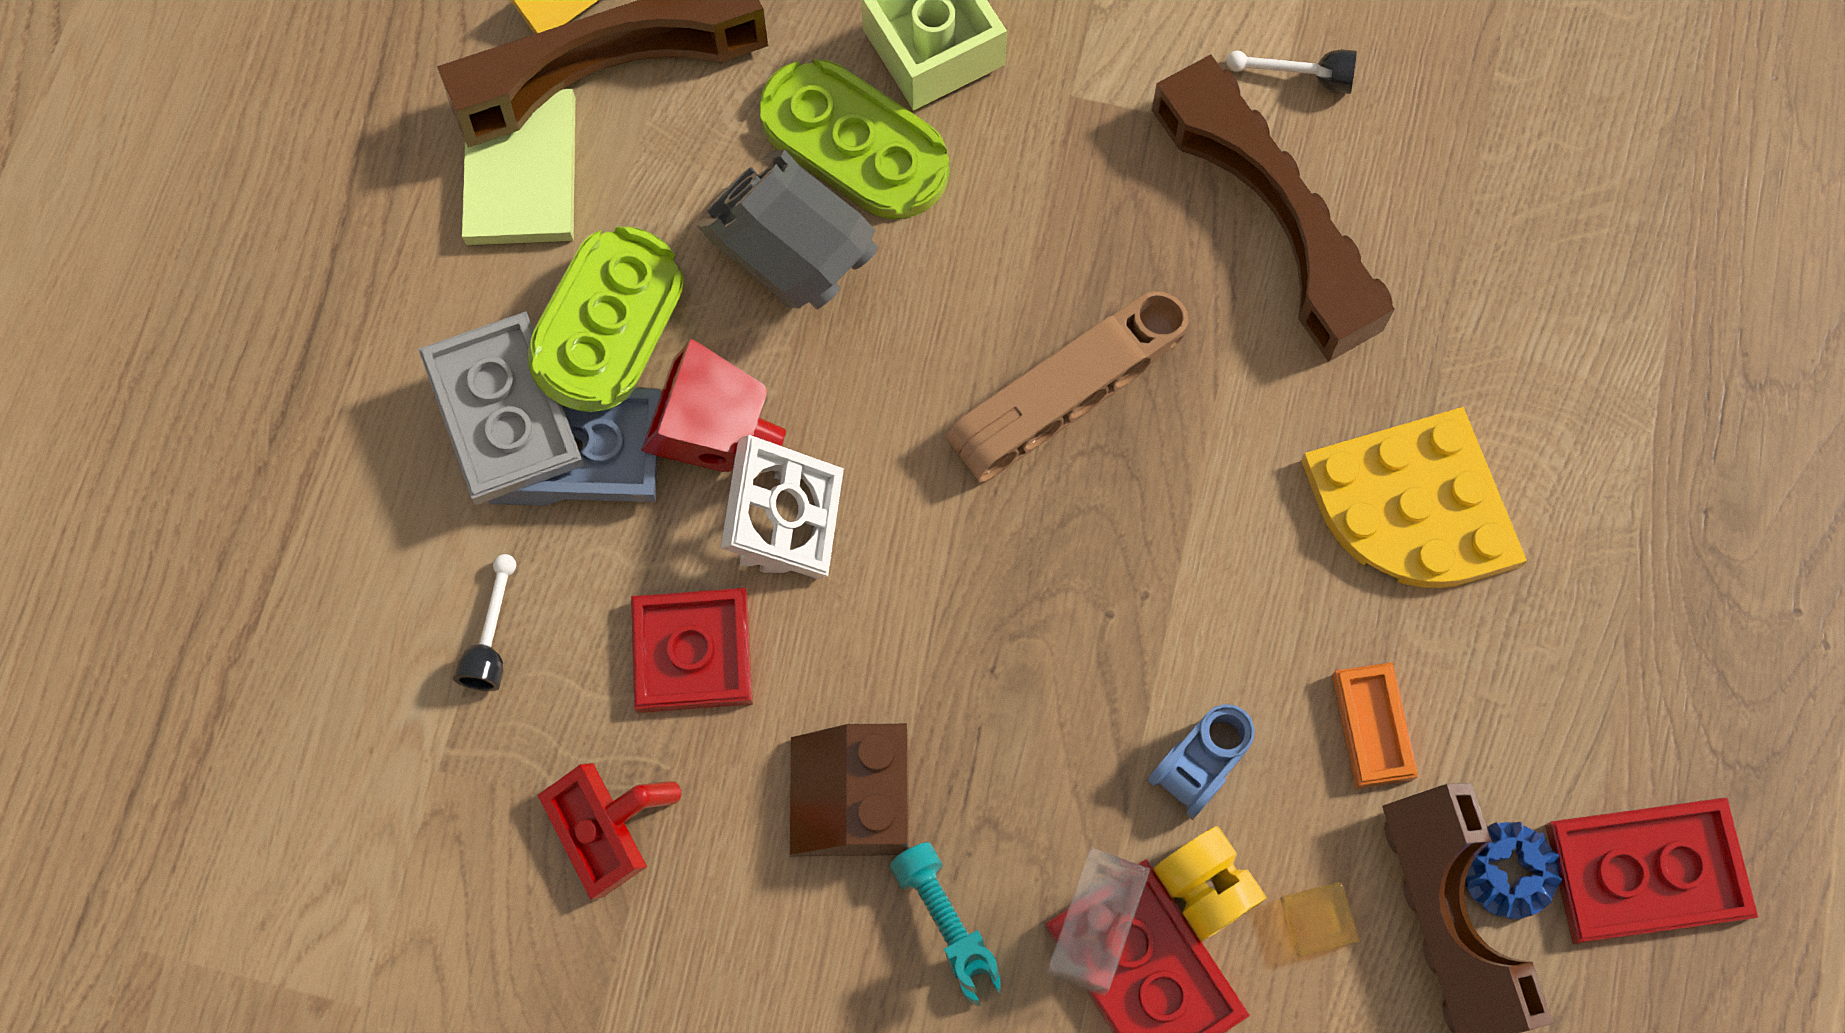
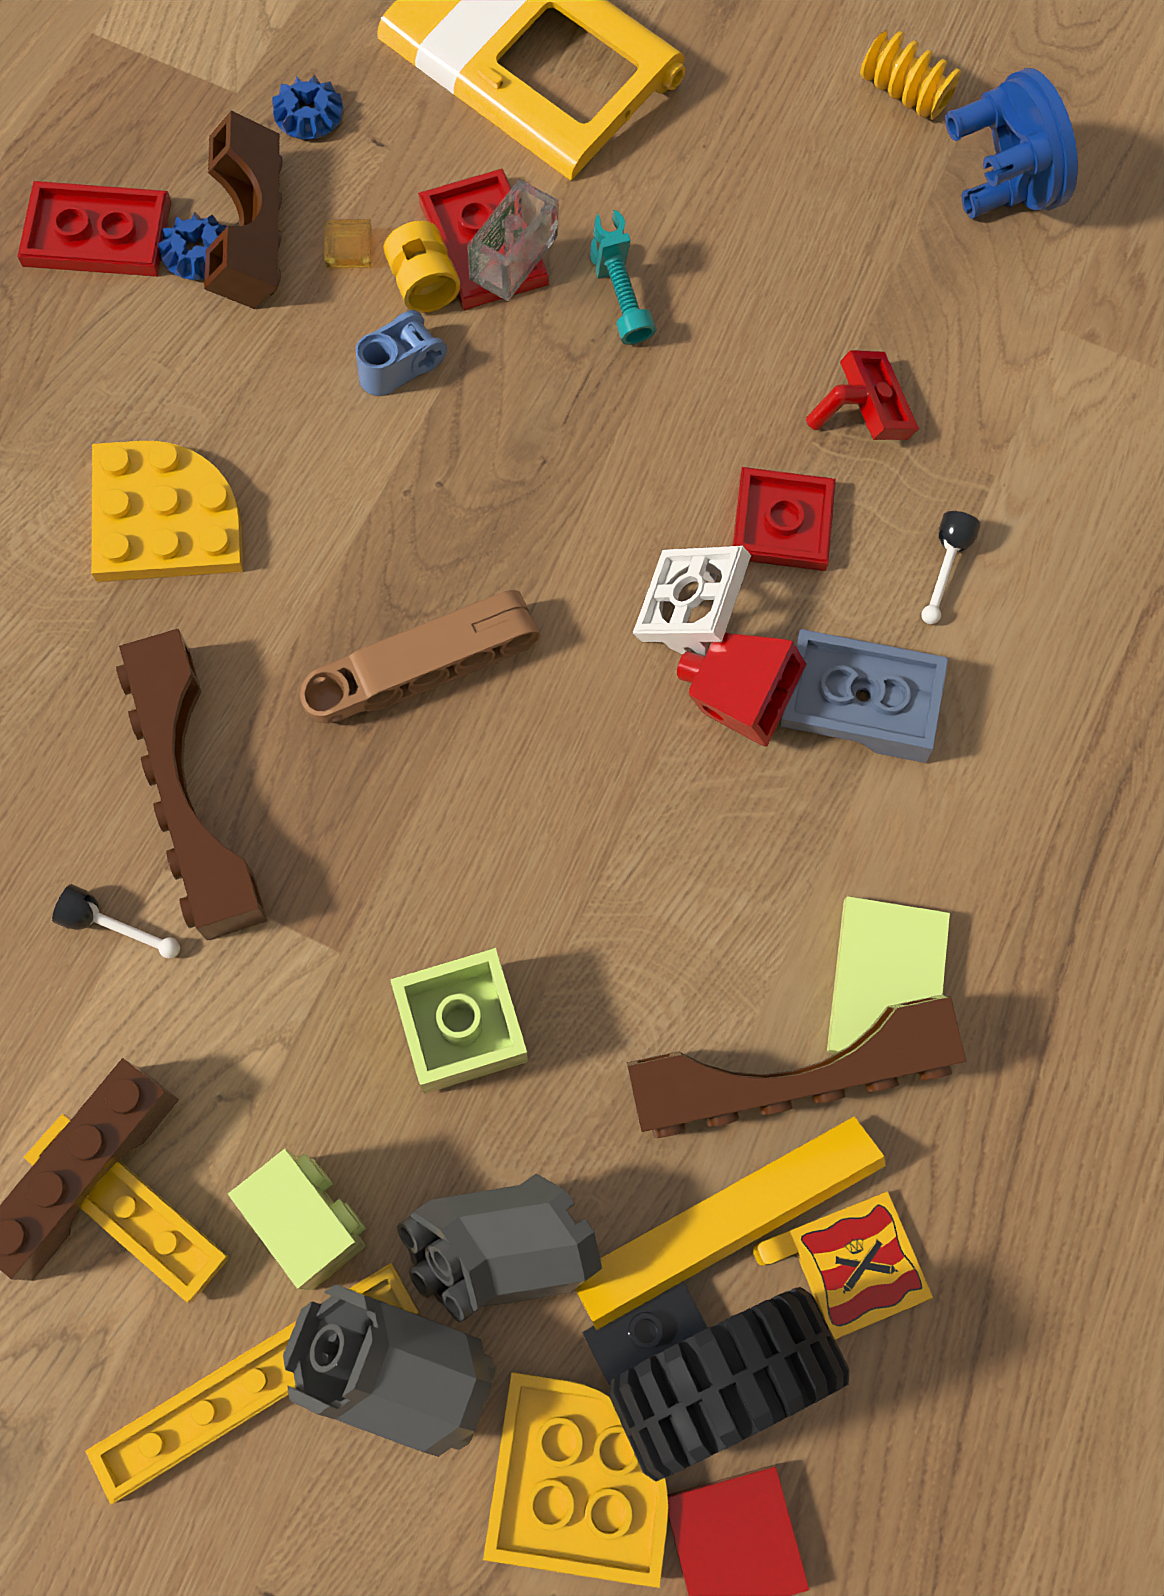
camera: 175 degrees left, 0 degrees up
(495, 412) = (926, 720): light grey tile -> none
(605, 319) = (823, 789): lime tile -> none
(789, 231) = (644, 835): dark grey brick -> none
(850, 791) = (674, 382): reddish brown slope -> none
(855, 138) = (561, 946): lime tile -> none
(1374, 725) = (259, 360): orange tile -> none

